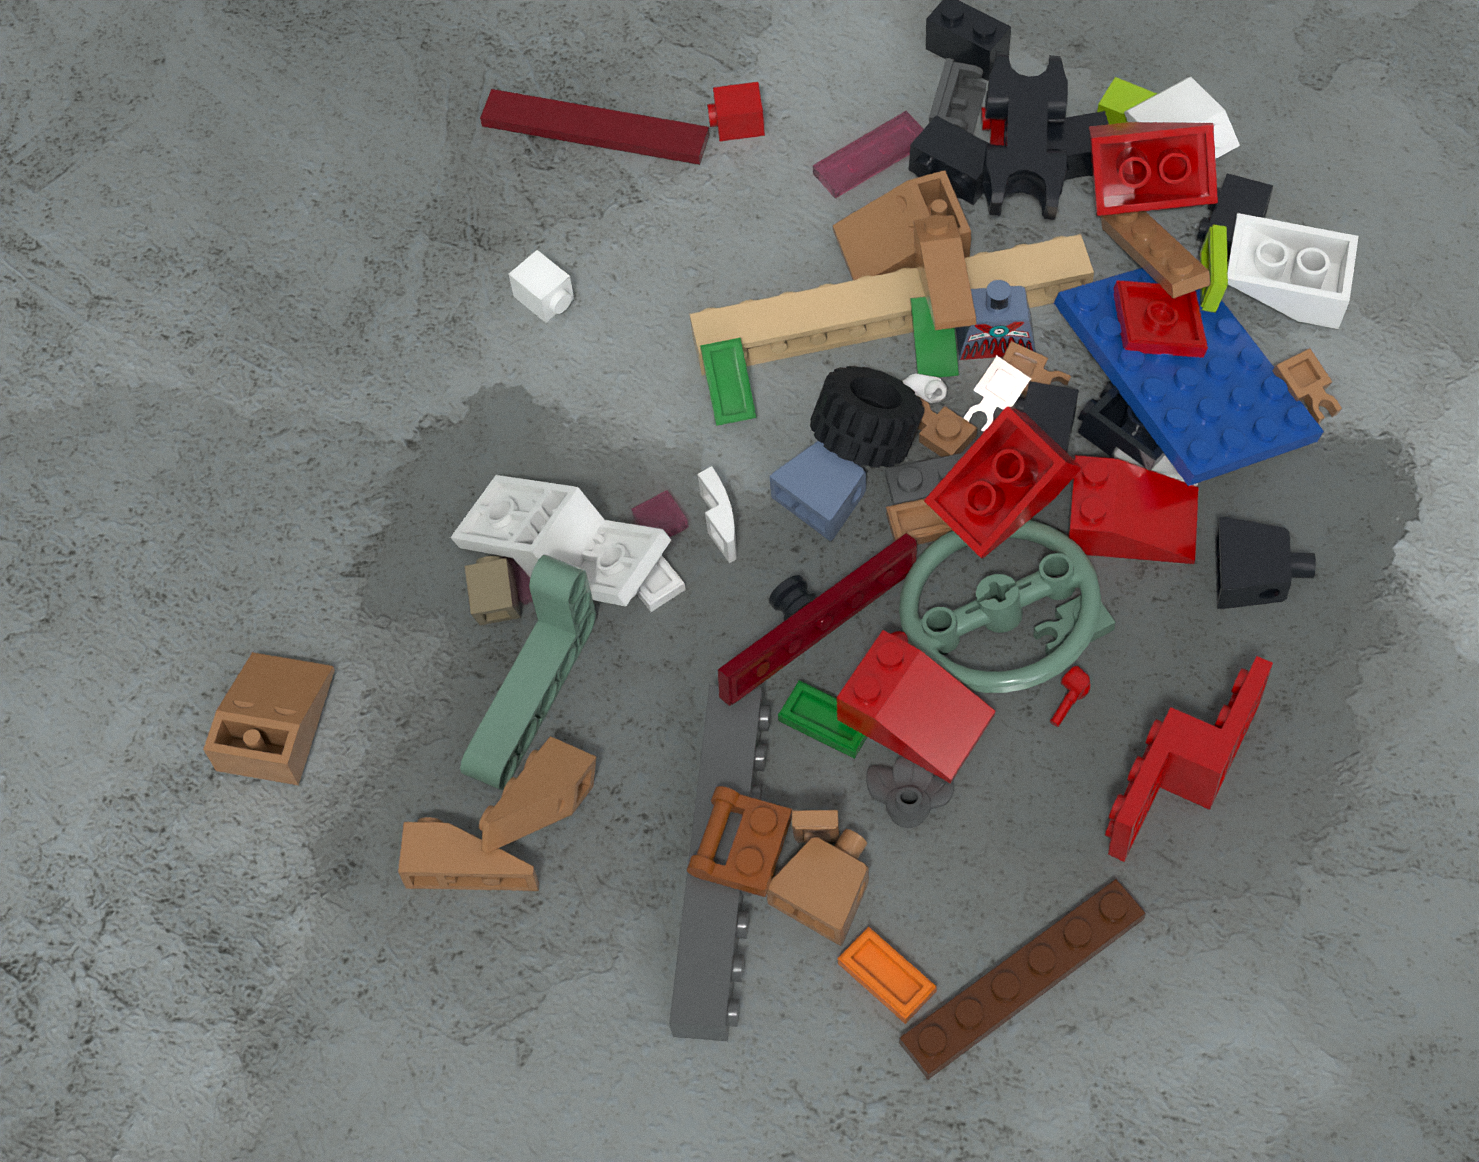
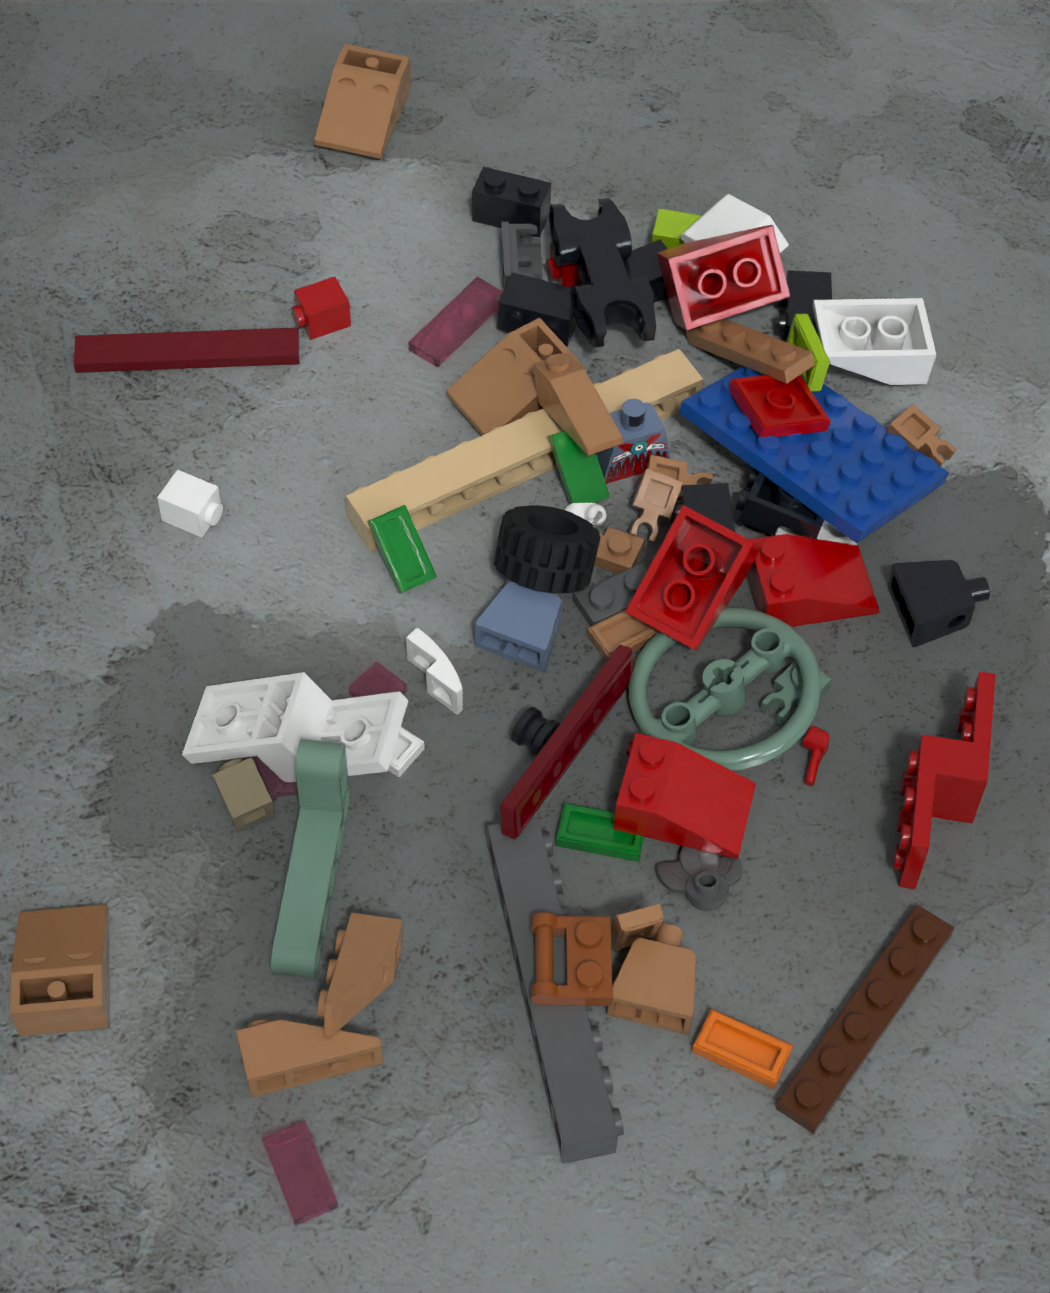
camera: 25 degrees left, 5 degrees down
(423, 974) = (300, 1173): none -> clear pink tile

